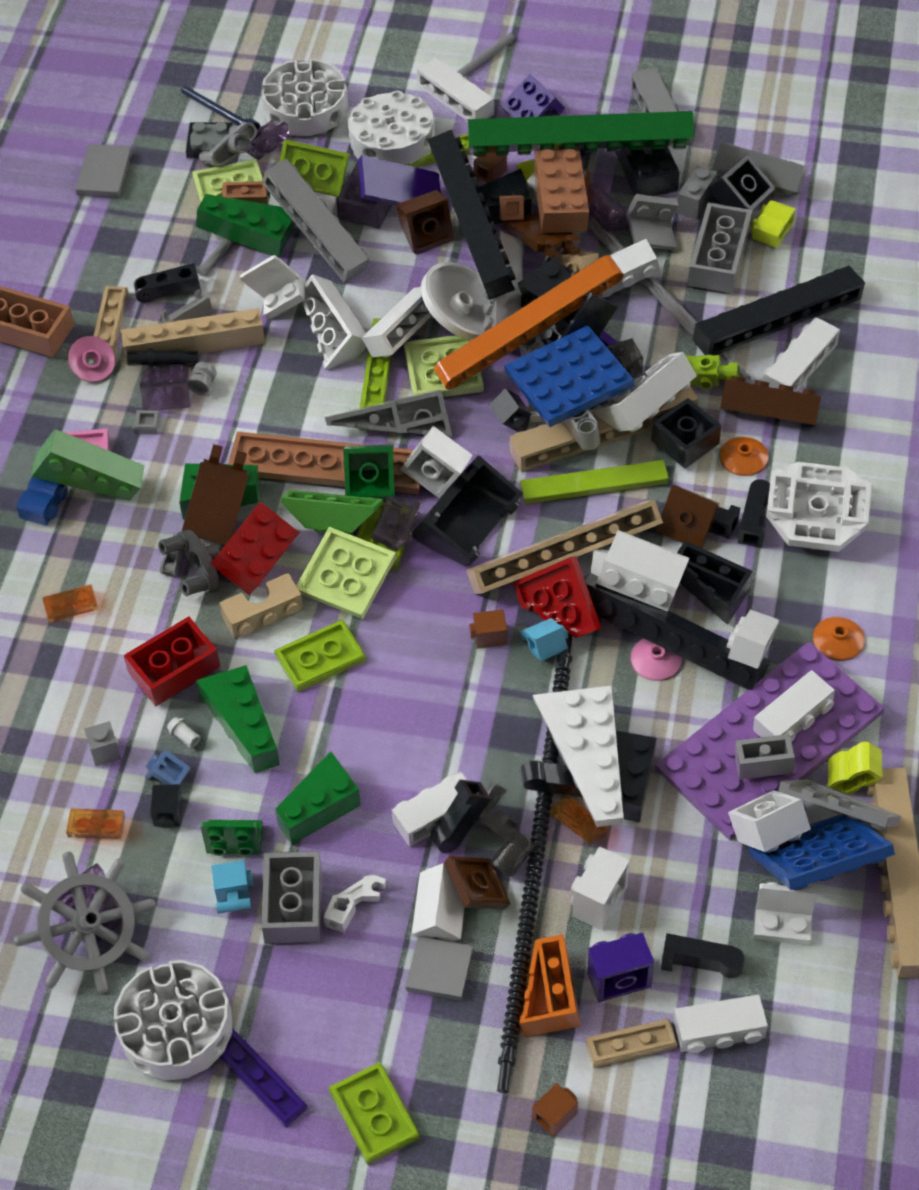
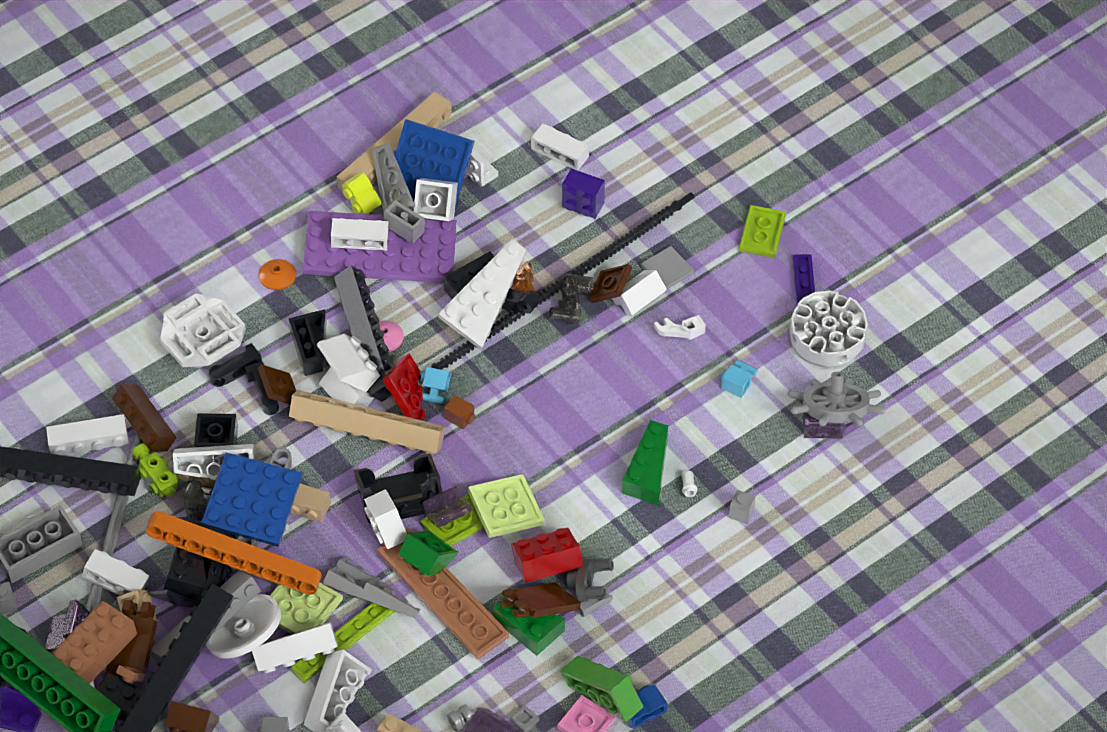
camera: 140 degrees left, 0 degrees up
(70, 603) = (685, 621): clear orange plate -> none
(95, 823) = (783, 467): clear orange plate -> none
(166, 805) = (735, 446): black brick -> none
(167, 768) = (718, 468): medium blue bracket -> none
(172, 661) = (660, 523): red brick -> none
(232, 837) = (715, 401): green bracket -> none
(244, 617) = (591, 524): tan arch -> none
(292, 897) = (713, 344): light grey brick -> none
(317, 800) = (651, 386): green wedge -> none
(320, 655) = (567, 475): lime tile -> none
(327, 510) = (476, 555): bright green wedge -> none
(422, 813) = (592, 339): white brick -> none
(460, 815) = (588, 312): black leg -> none
(510, 409) = (297, 535): black brick -> none
(551, 990) = (626, 211): orange wedge -> none
(555, 1109) = (676, 168): dark orange brick -> none
(594, 482) = (301, 460): lime tile -> none
(599, 887) = (553, 233): white brick -> none
(631, 1043) = (609, 173): tan tile -> none
(650, 220) = (54, 598): light grey bracket -> none
(702, 955) = (535, 181): black leg -> none
(744, 456) = (186, 414): orange dish -> none
(752, 638) = (333, 285): white brick -> none

